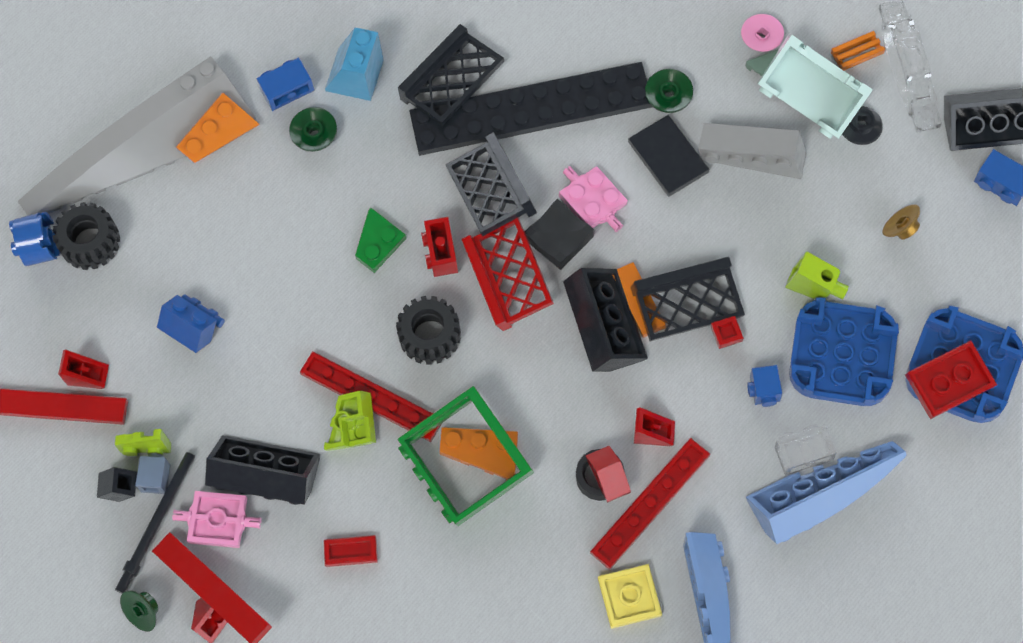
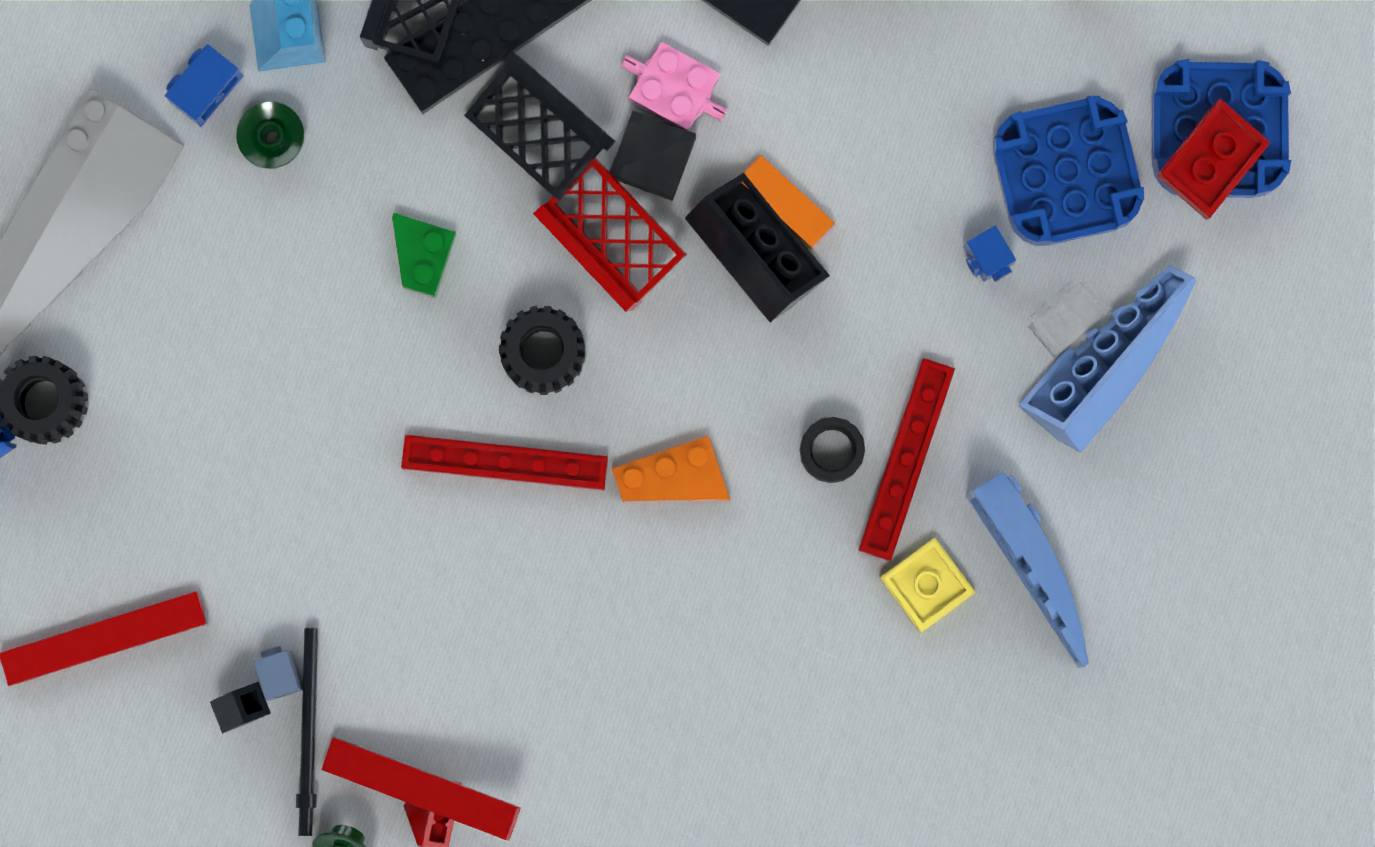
camera: 30 degrees left, 15 degrees up
(82, 371) = (125, 579): red slope -> none
(138, 443) = (234, 648): lime wing -> none
(189, 322) = (231, 460): blue brick -> none
(216, 128) = (140, 185): orange wing -> none
(217, 519) = (384, 697): bright pink plate -> none
(261, 469) = (412, 612): black slope -> none
(350, 551) = (566, 668): red tile -> none
(352, 422) = (497, 507): lime slope -> none
(422, 471) = (639, 552): green window -> none
(441, 247) = (510, 233): red brick -> none
(609, 473) = (845, 447): slope -> none
(653, 429) = (874, 365): red slope -> none
(679, 279) = (833, 155): black fence -> none
(727, 332) = (915, 202): red plate -> none
(815, 278) = (999, 90): lime torso -> none

